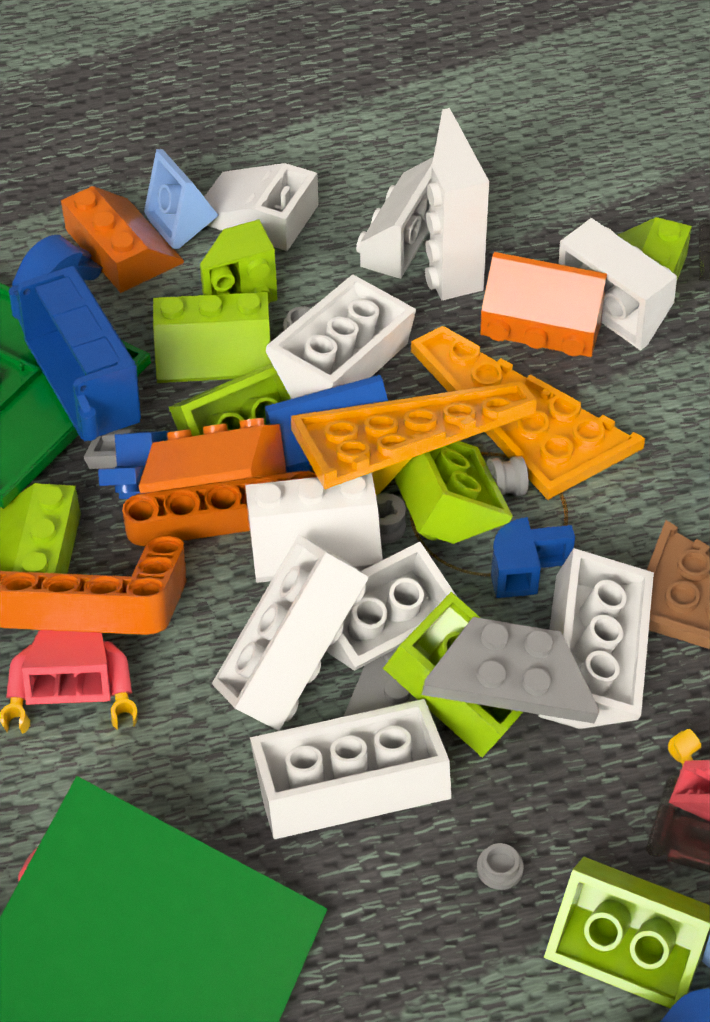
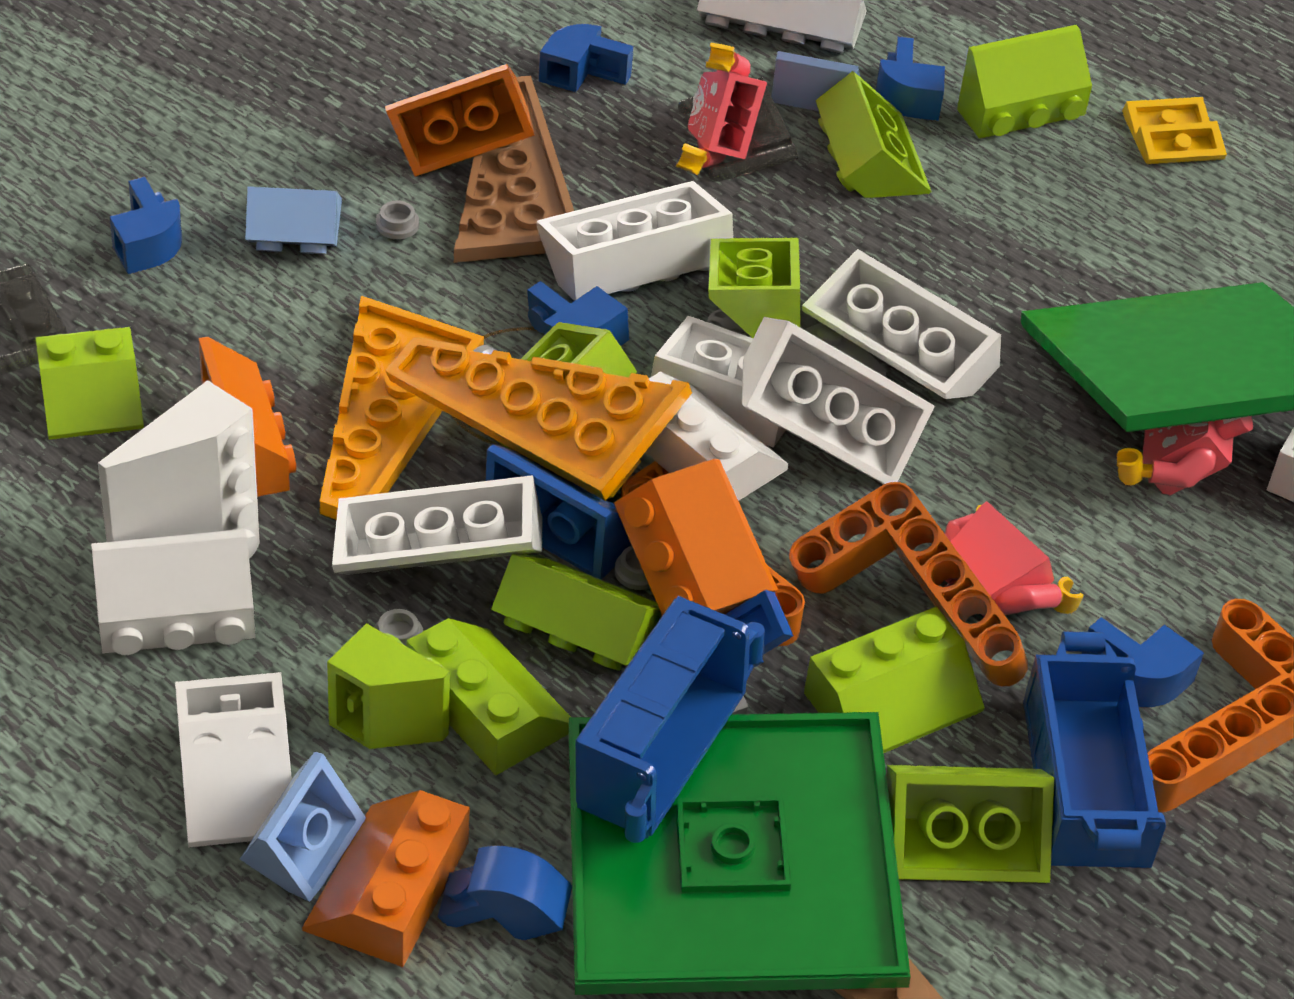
camera: 130 degrees left, 5 degrees down
(500, 866) = (887, 233): light grey plate -> none
(513, 670) = (748, 231): light grey wing -> none
(636, 286) = (165, 354): white slope -> none

